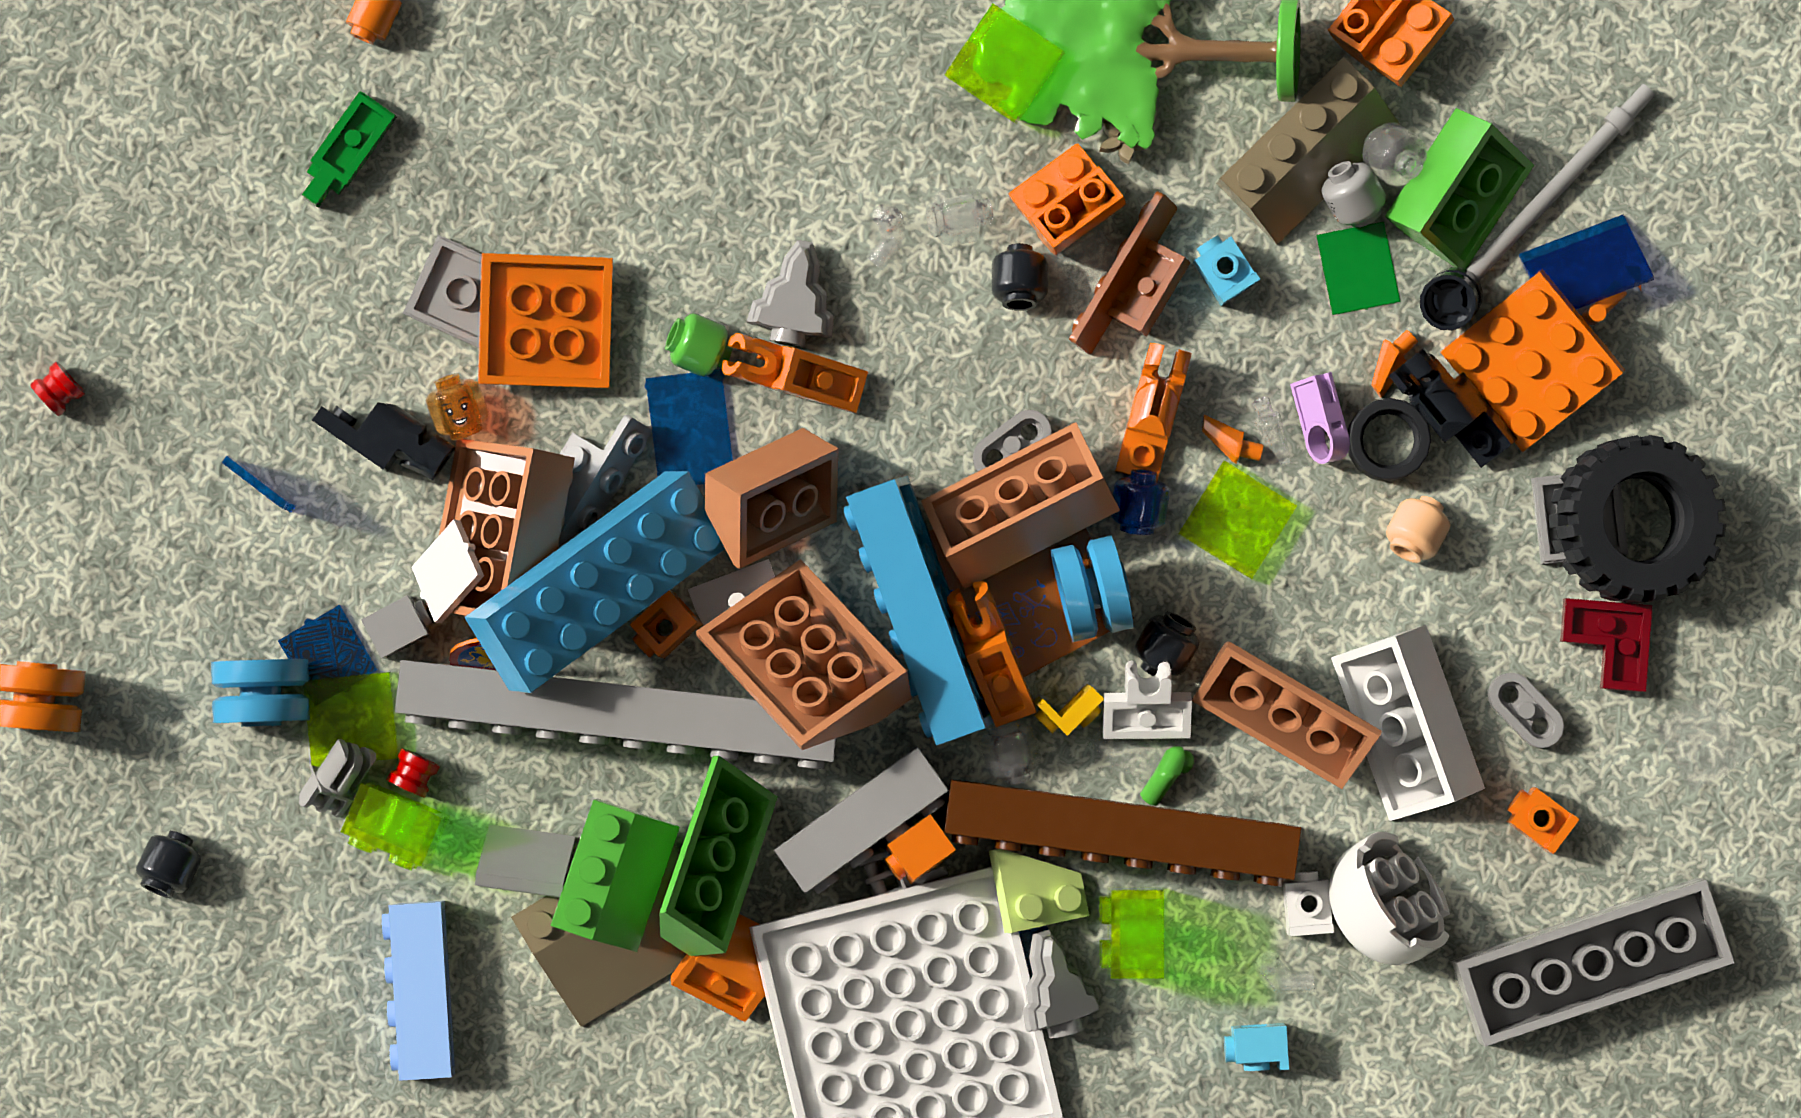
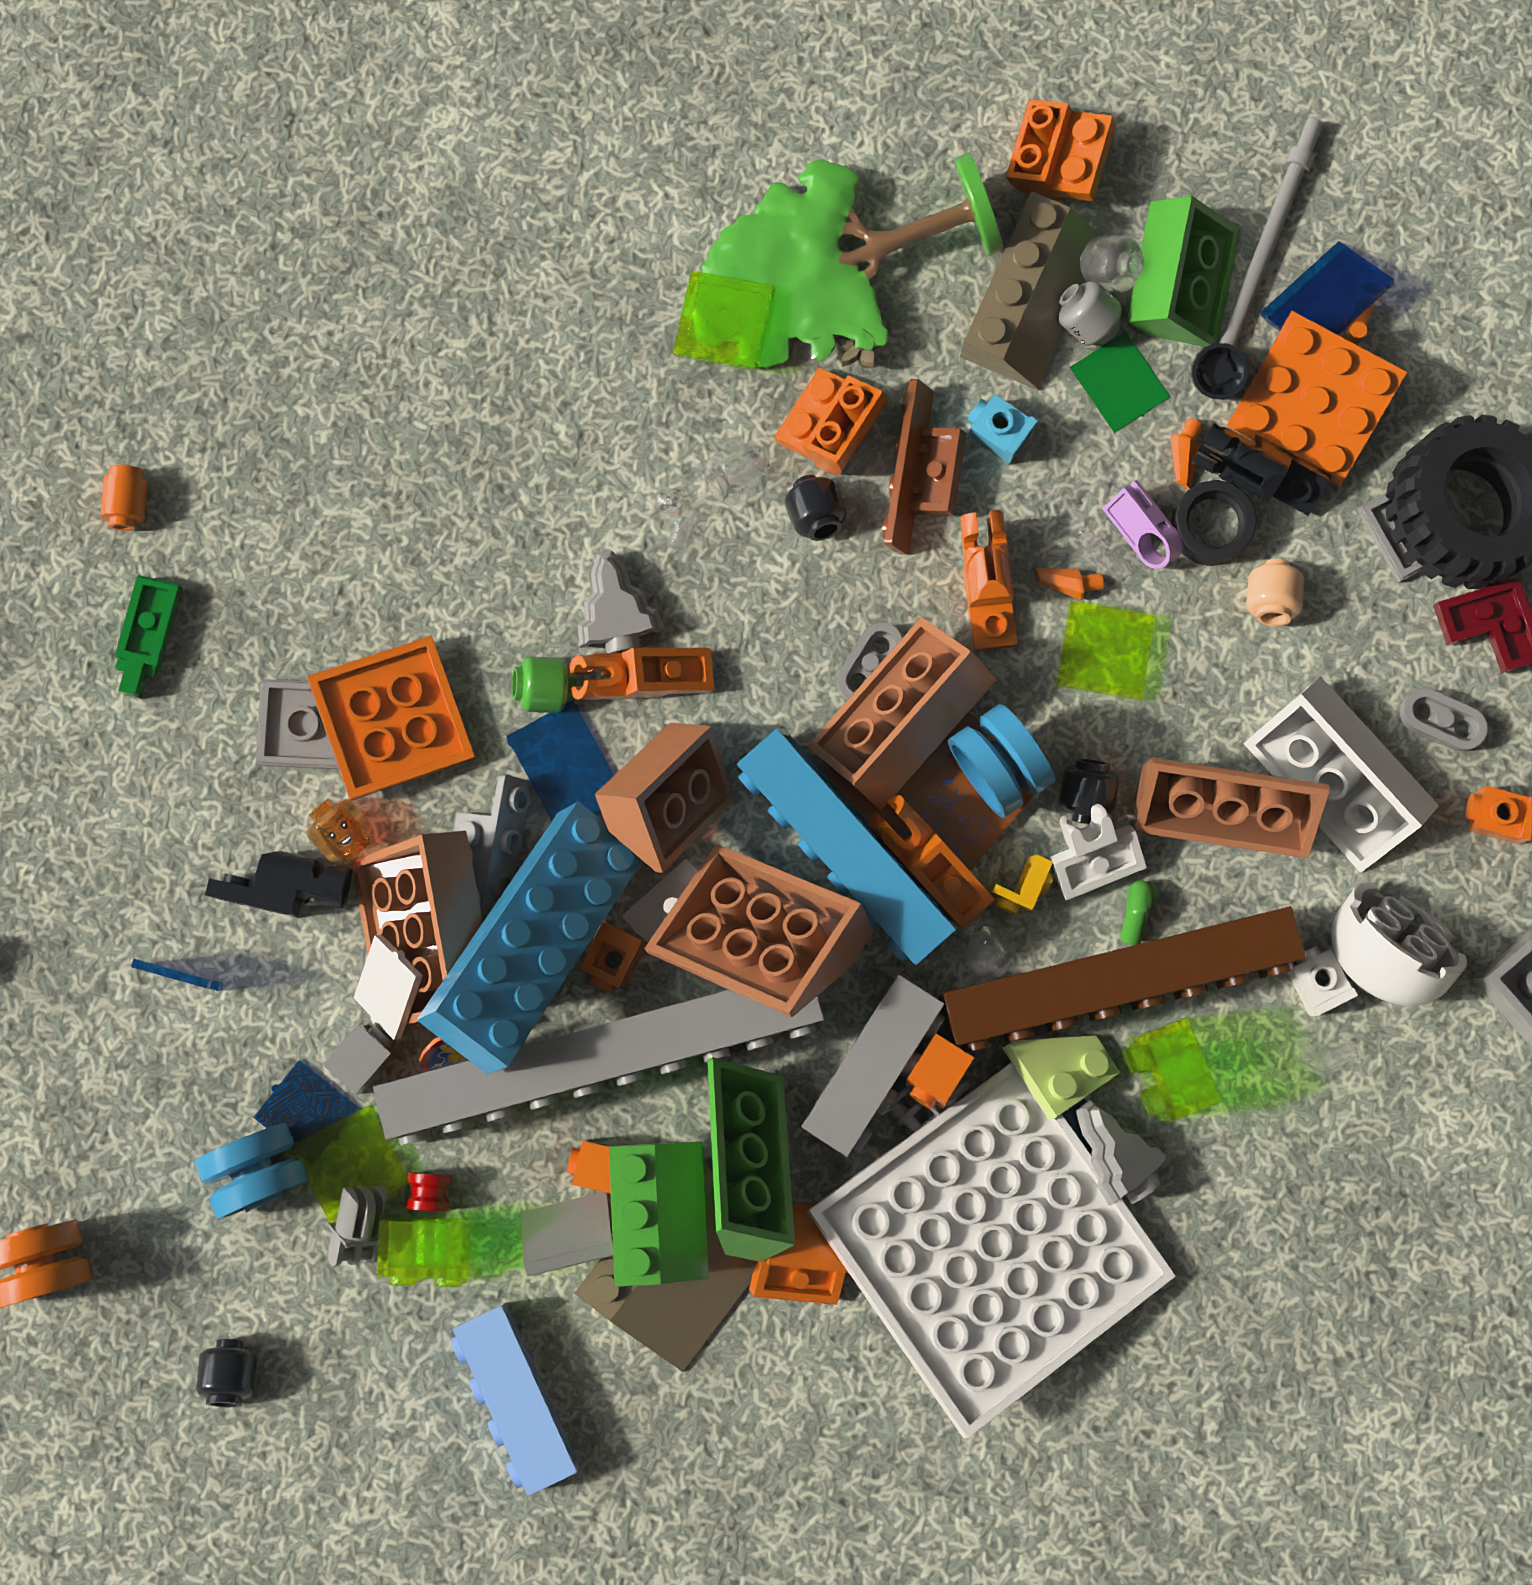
camera: 20 degrees left, 5 degrees down
(570, 808) = (590, 1166): none -> orange brick
(1141, 502) = (1013, 666): clear blue head -> none
(1258, 1046) = (1329, 1132): medium azure brick -> none

